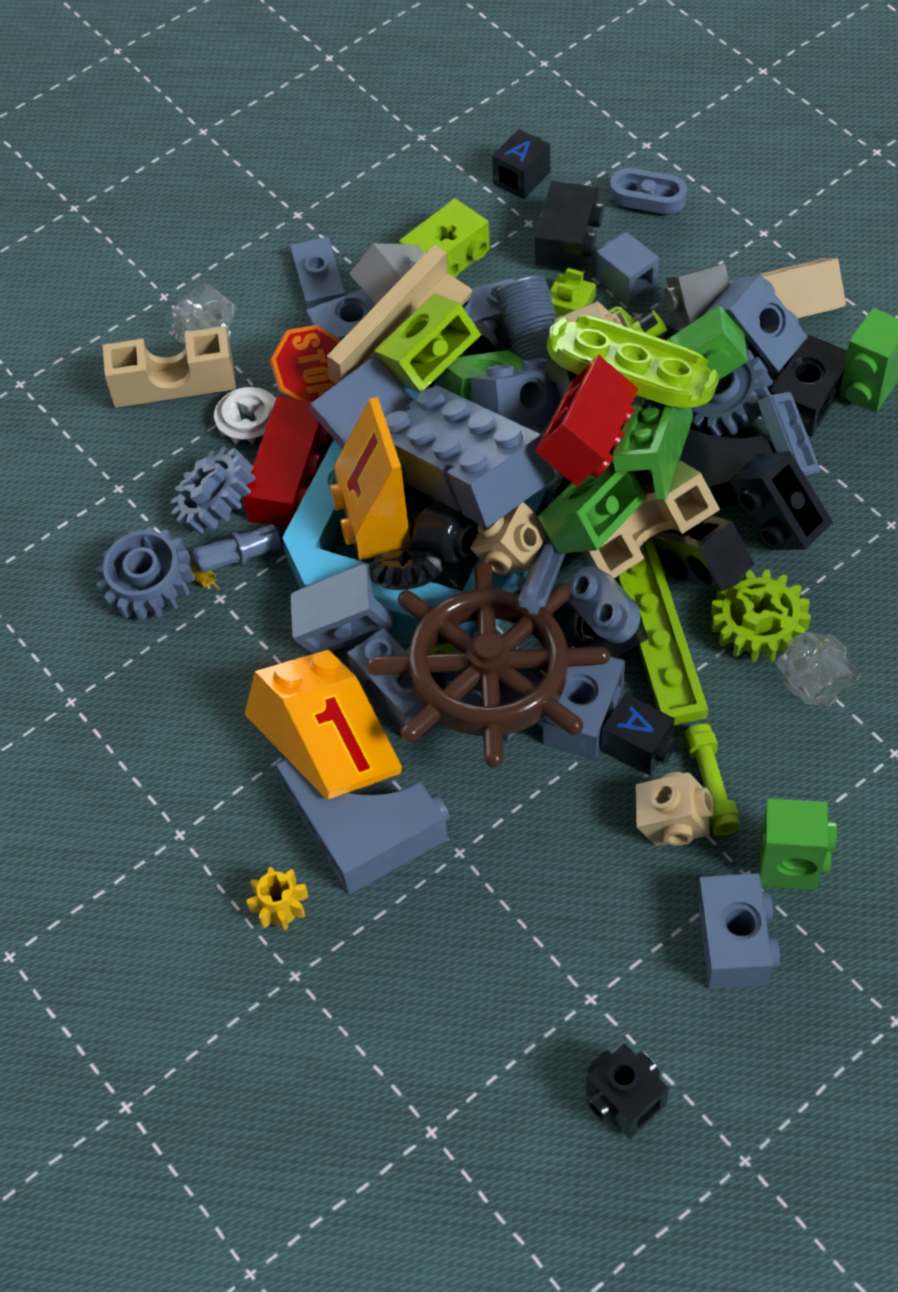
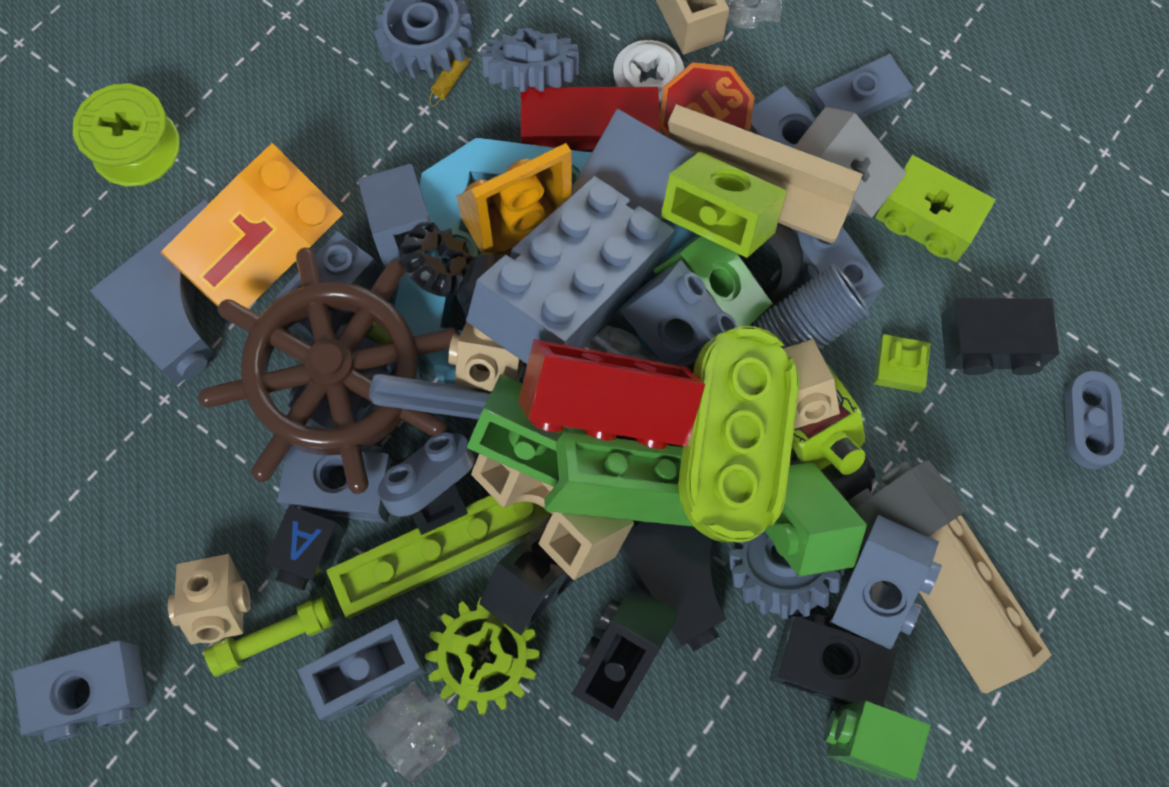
camera: 70 degrees right, 15 degrees up
(157, 824) = (126, 134): none -> lime piece
(237, 548) = (470, 103): sand blue axle -> none
(281, 911) = (77, 242): yellow gear -> none
(521, 163) = (1089, 265): black brick -> none
(627, 268) = (959, 416): sand blue brick -> none
(760, 695) = (361, 671): none -> sand blue brick
(788, 431) = (734, 649): sand blue plate -> none
(795, 844) = (165, 738): bright green brick -> none

